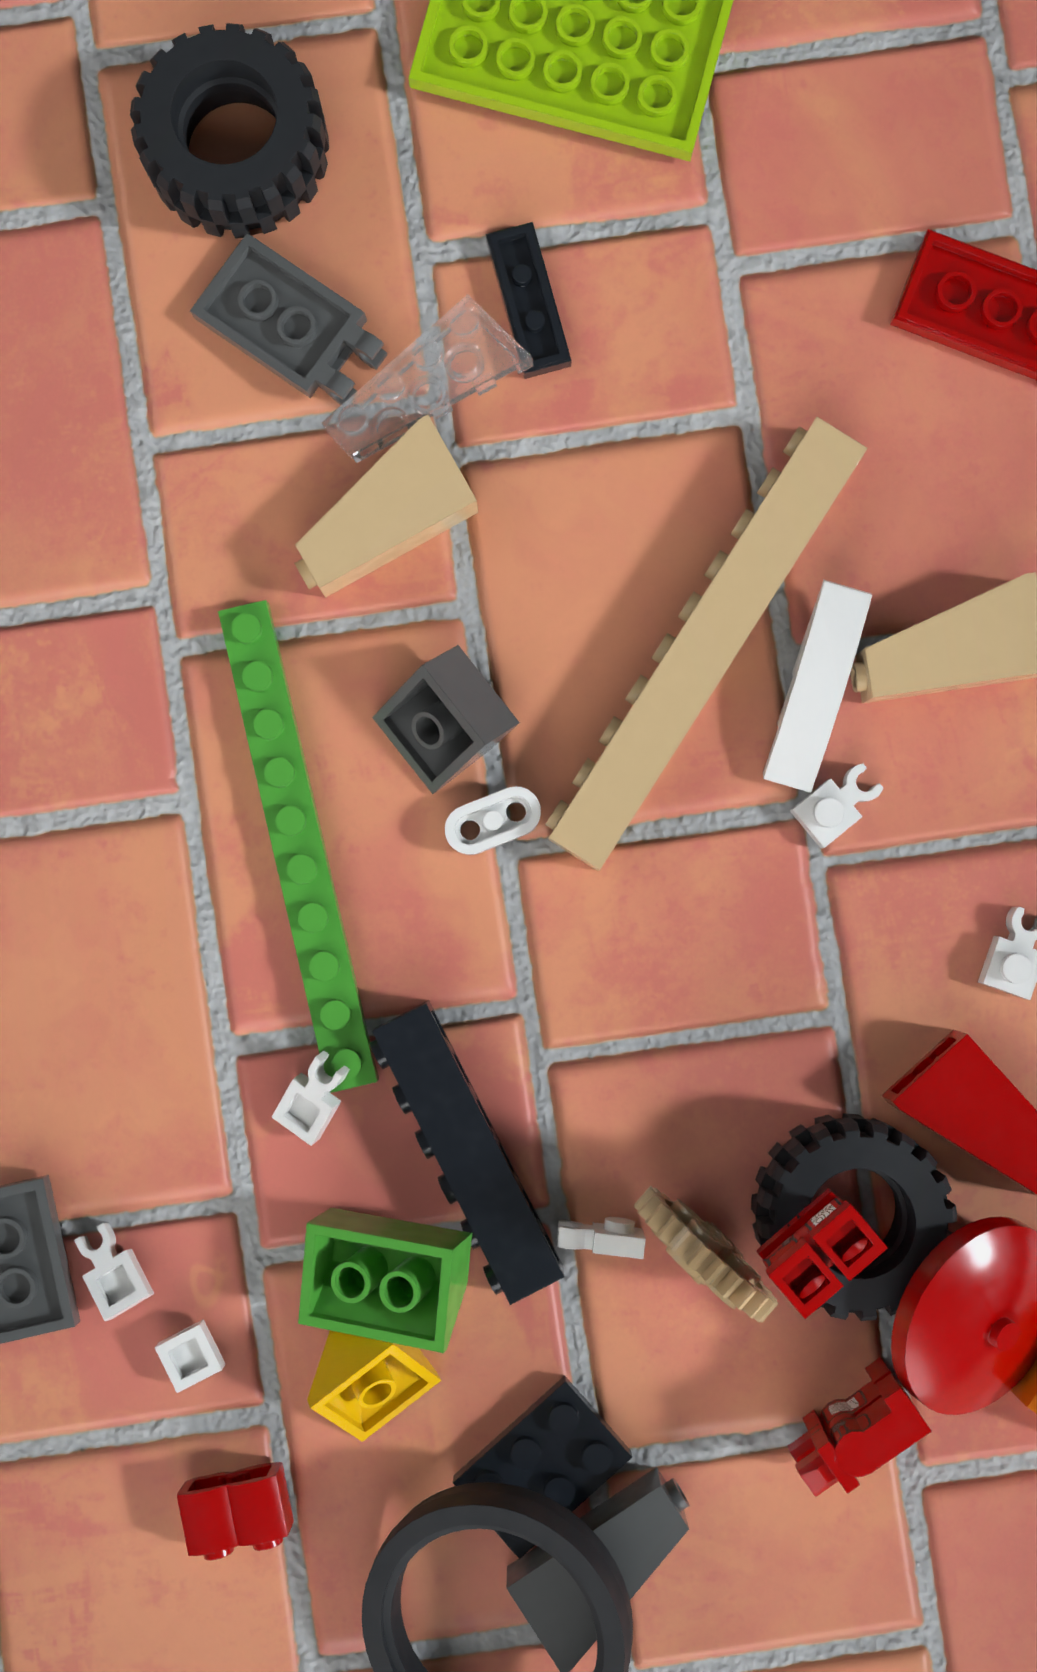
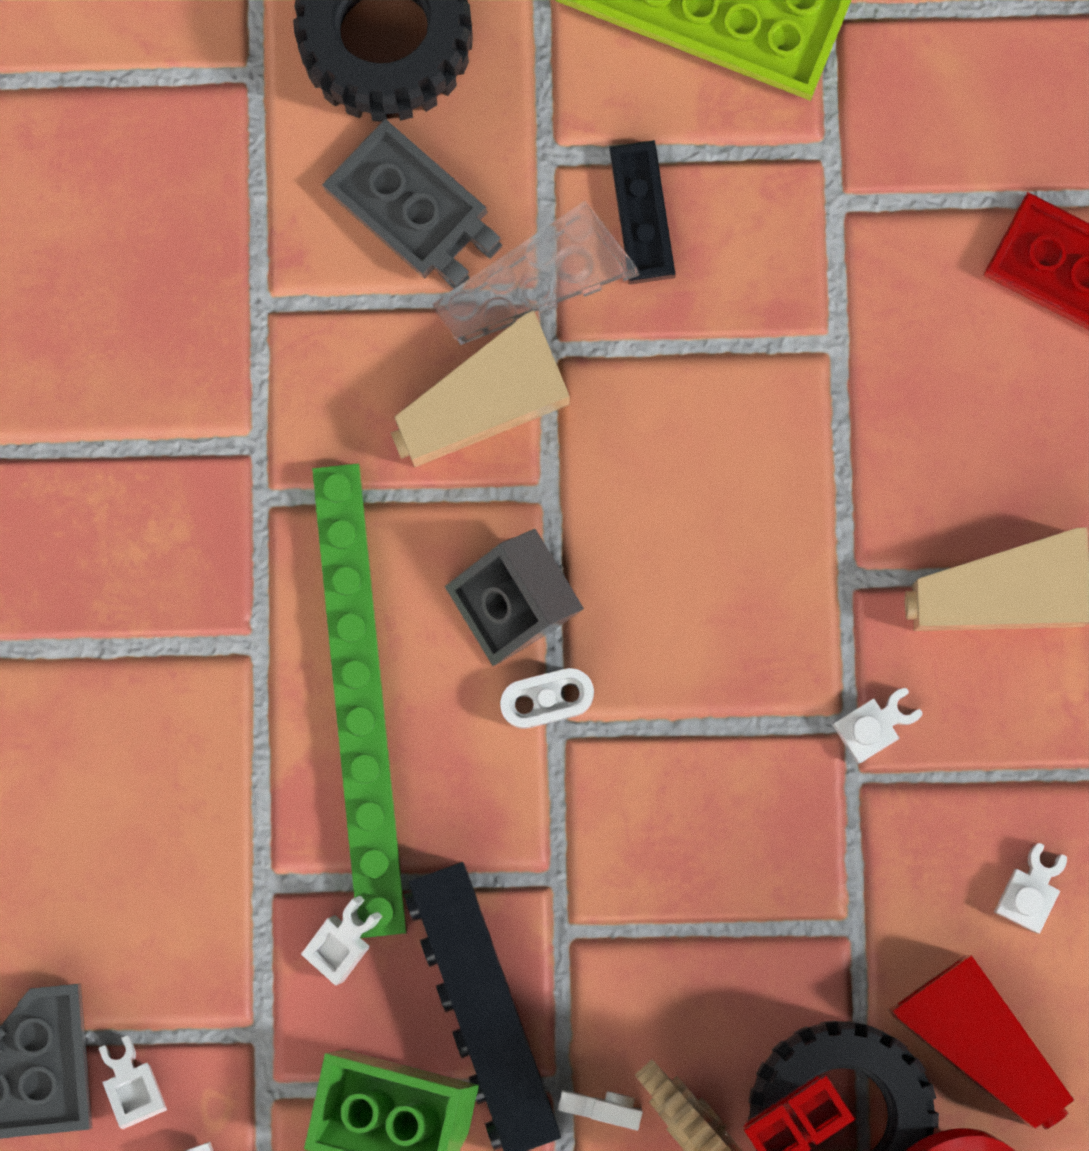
camera: 10 degrees right, 5 degrees down
(706, 644) = (768, 558): tan brick -> none
(817, 685) = (870, 609): white slope -> none

